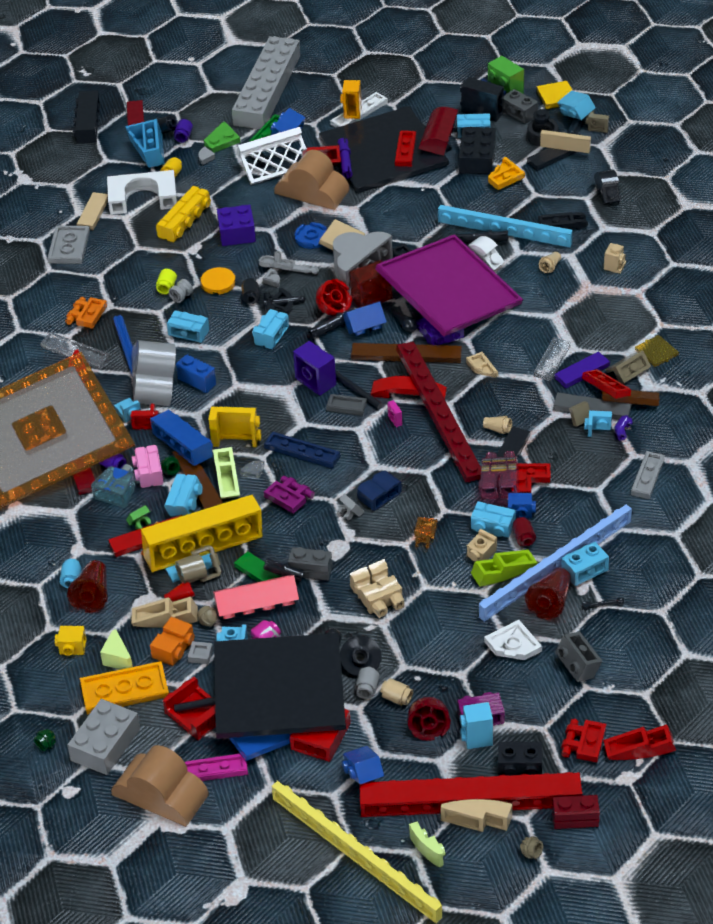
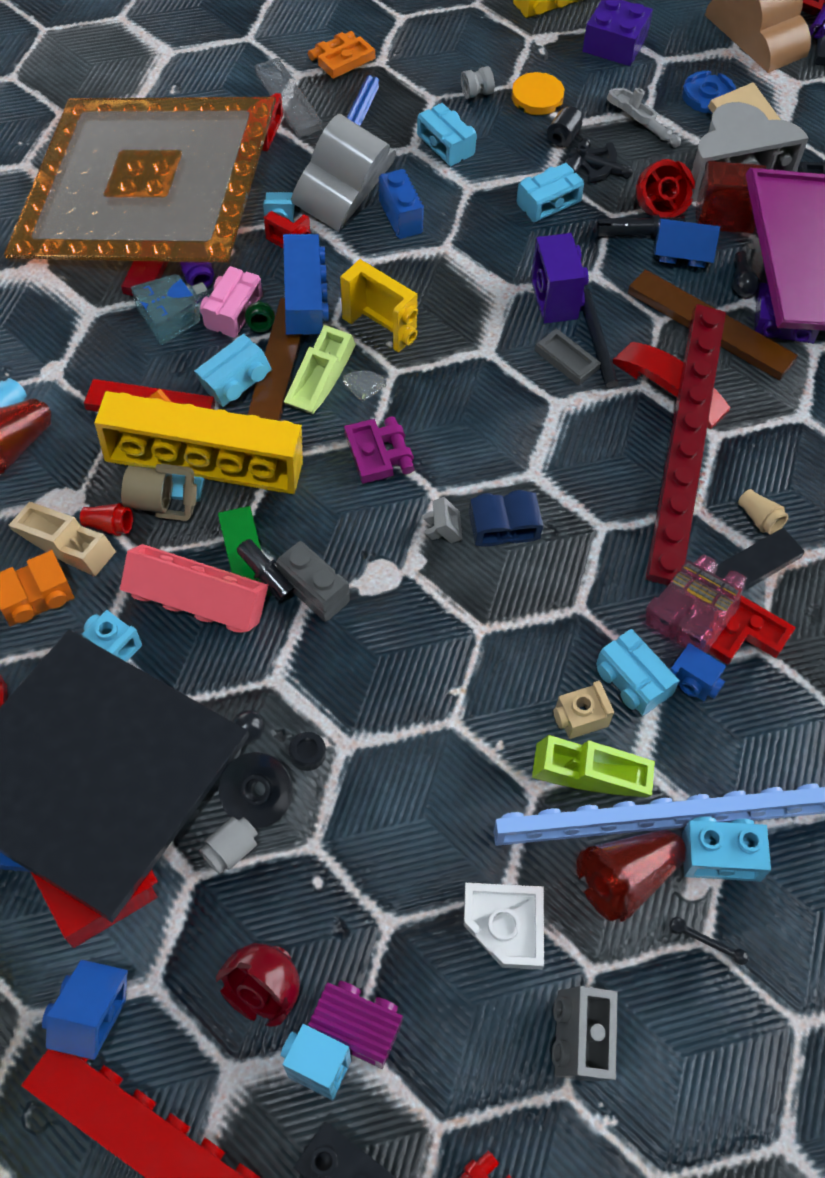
camera: 30 degrees right, 15 degrees up
(138, 516) = (155, 367): bright green tile -> none
(165, 281) = (469, 58): neon yellow brick -> none
(200, 652) = (54, 626): light grey tile -> none
(207, 616) = (109, 576): dark tan plate -> none
(265, 630) = (157, 658): dark pink head -> none
(272, 278) = (610, 124): light grey tile -> none
(302, 450) = (453, 392): dark blue tile -> none
(369, 630) = (307, 751): none -> black tile
(382, 590) = (369, 698): tan hips -> none
(394, 413) = (621, 408): dark pink tile -> none
(396, 692) = (258, 893): tan brick -> none
(425, 530) = (521, 625): clear orange plate -> none
(481, 365) = (807, 401): tan tile -> none
(523, 531) = (669, 724): dark red brick -> none

